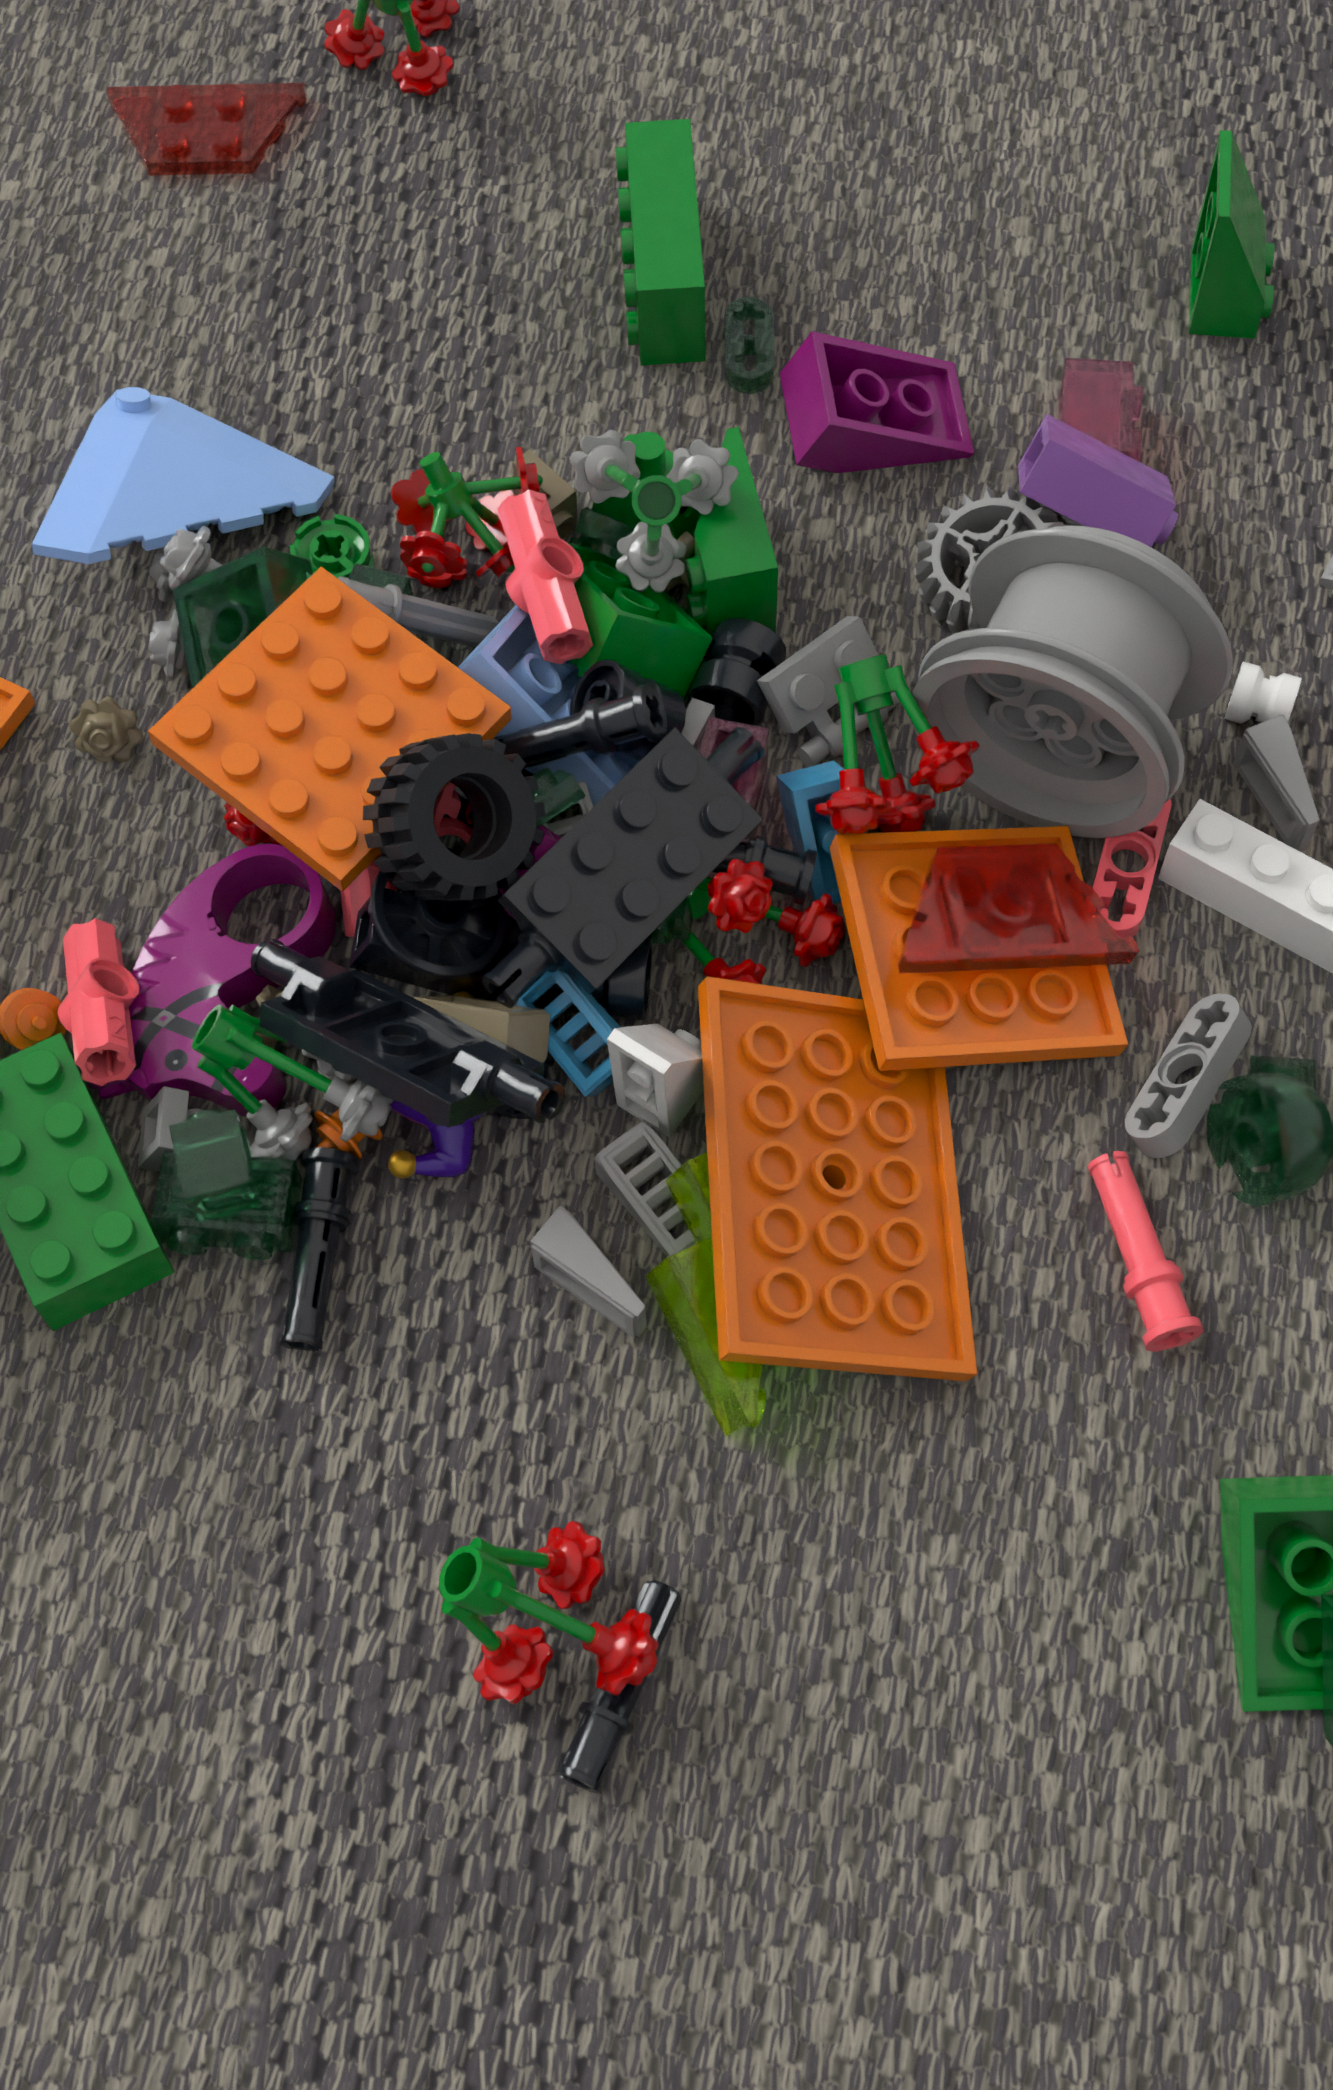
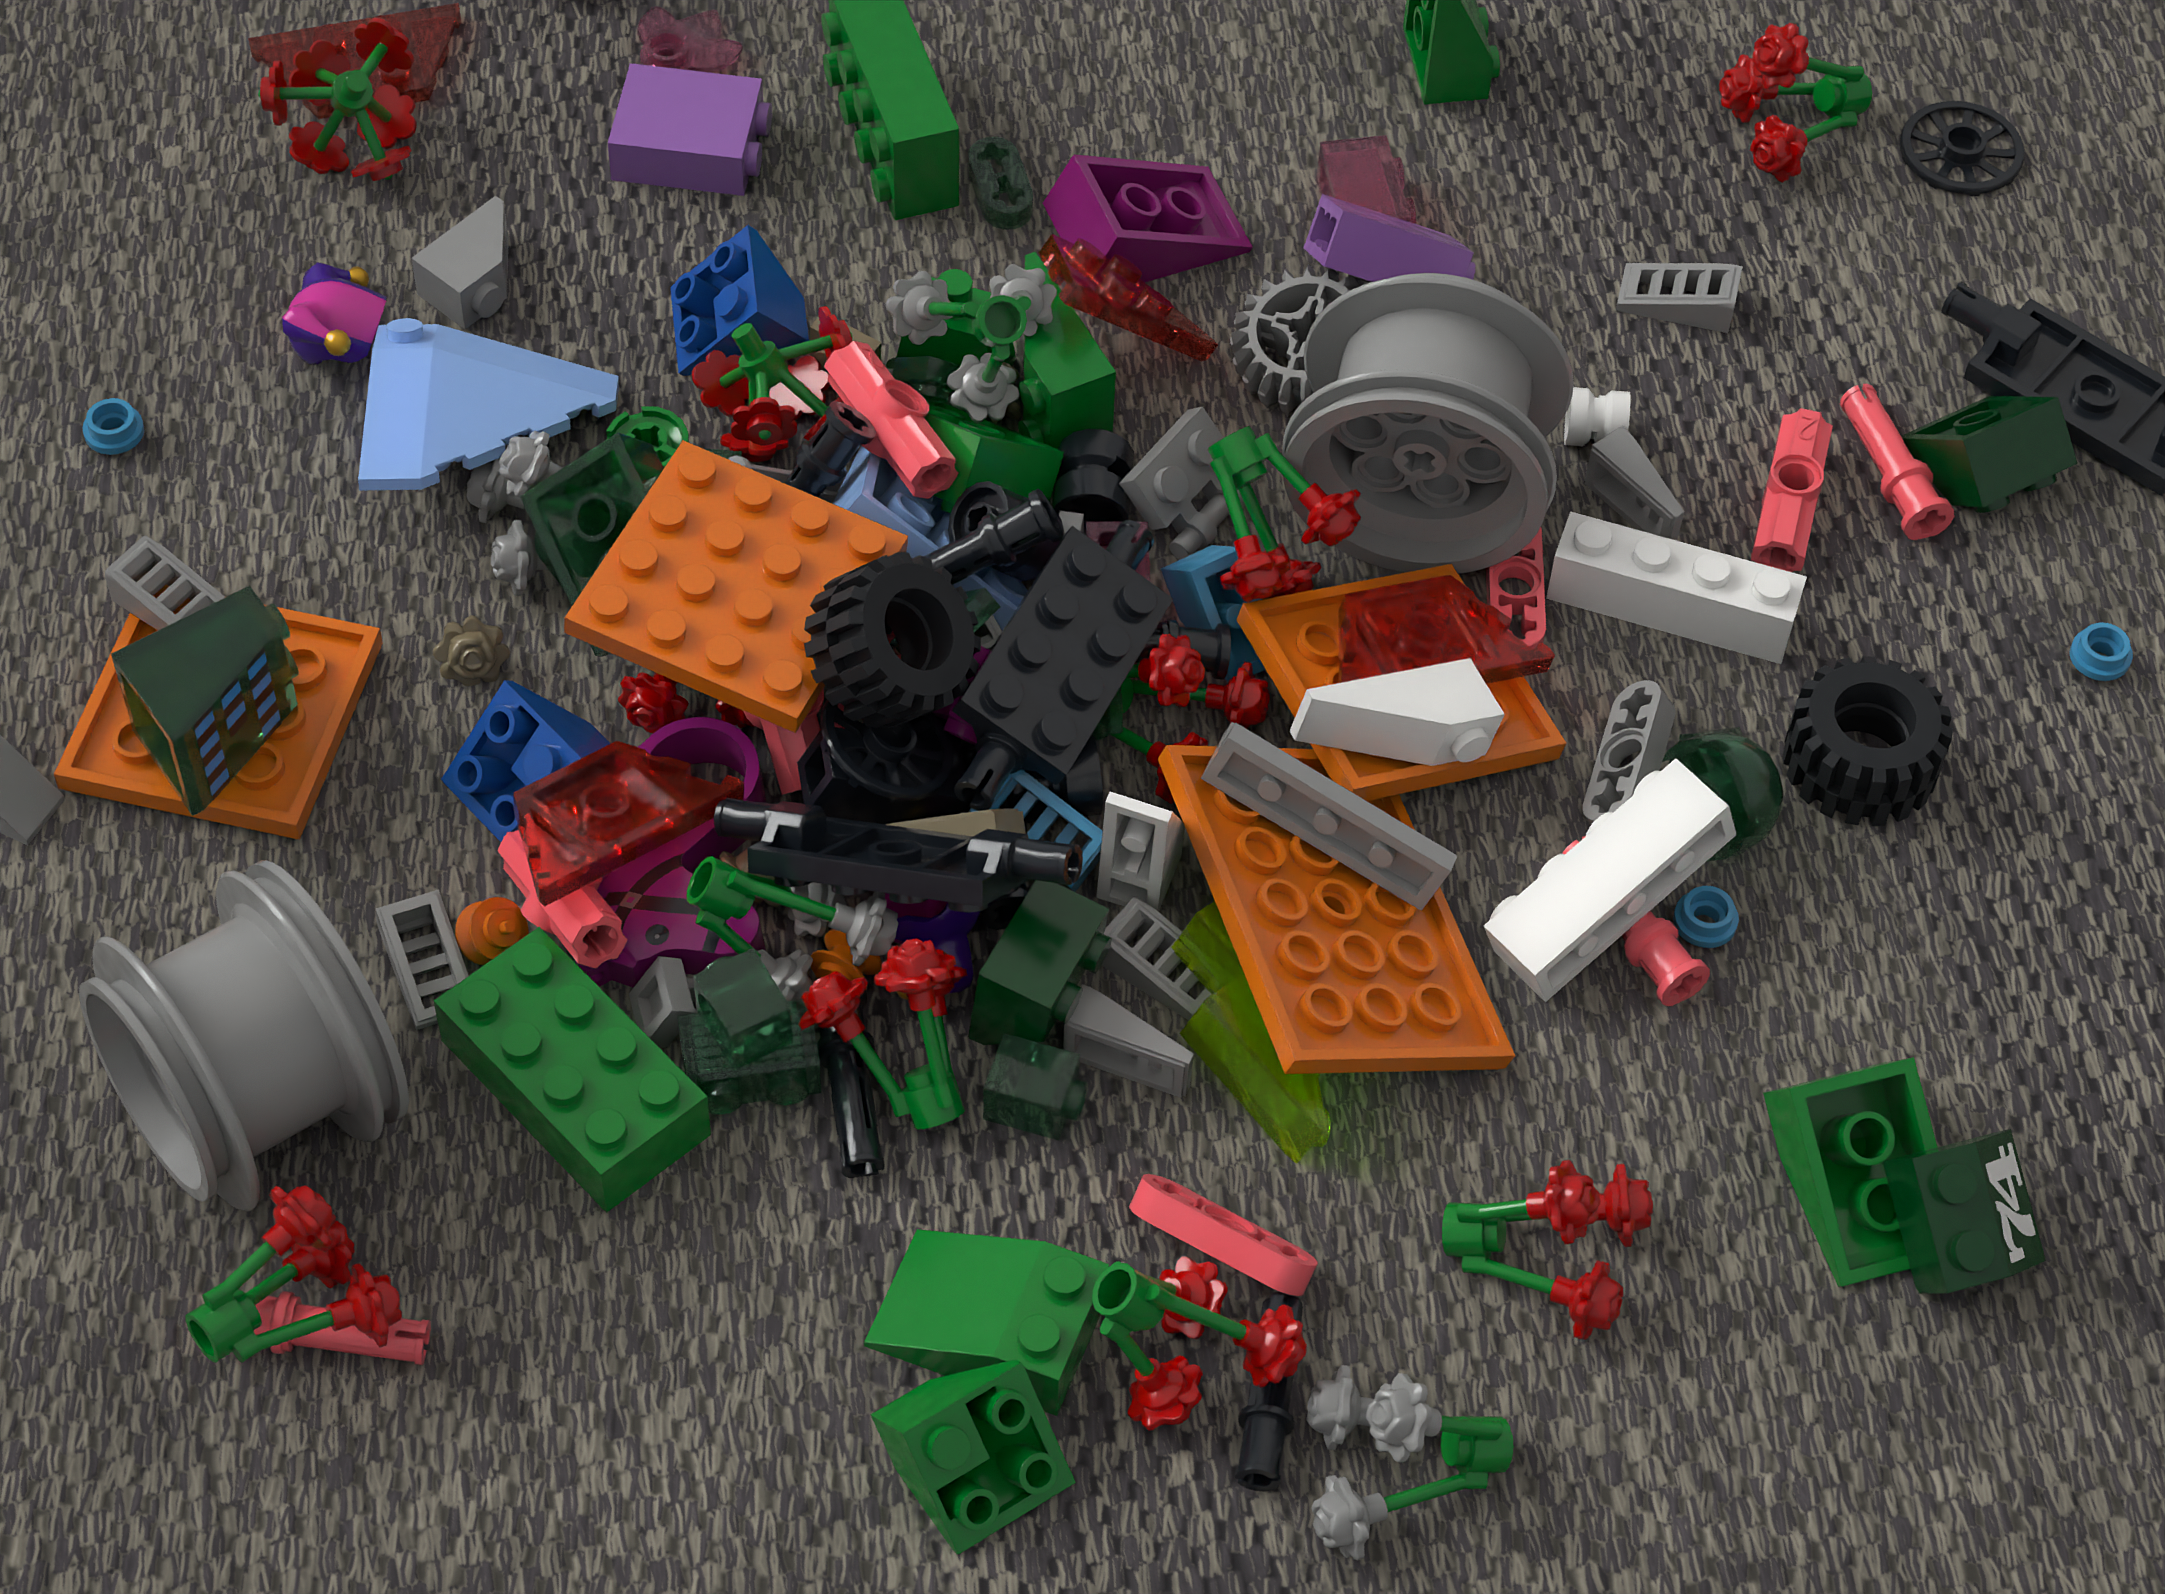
camera: 20 degrees left, 10 degrees down
(84, 368) = (333, 315): none -> piece
(122, 857) = (513, 746): none -> blue slope
(153, 933) = (608, 814): none -> clear red wing
(154, 142) = (326, 76): none -> red plant
(229, 341) = (467, 266): none -> light grey slope
(304, 1682) = (974, 1450): none -> green slope
(369, 1178) = (925, 978): none -> plant
(369, 1532) = (990, 1302): none -> green slope
(463, 419) = (733, 288): none -> blue slope
(470, 242) = (688, 129): none -> medium lavender brick
(471, 603) = (826, 455): none -> black pin
(486, 1300) = (1033, 1087): none -> clear green brick
(497, 157) = (685, 43): none -> clear pink plate
(516, 1180) = (1038, 965): none -> dark green slope
(599, 1478) = (1223, 1235): none -> coral beam
(715, 1785) = (1398, 1423): none -> light grey plant
(813, 486) = (1119, 296): none -> clear red wing
(848, 1078) = (1328, 816): none -> light grey fence
(965, 992) = (1406, 715): none -> white slope
(965, 1582) = (1570, 1205): none -> red plant
(1123, 1209) = (1610, 878): none -> white brick
(1224, 1247) = (1712, 903): none -> dark azure plate

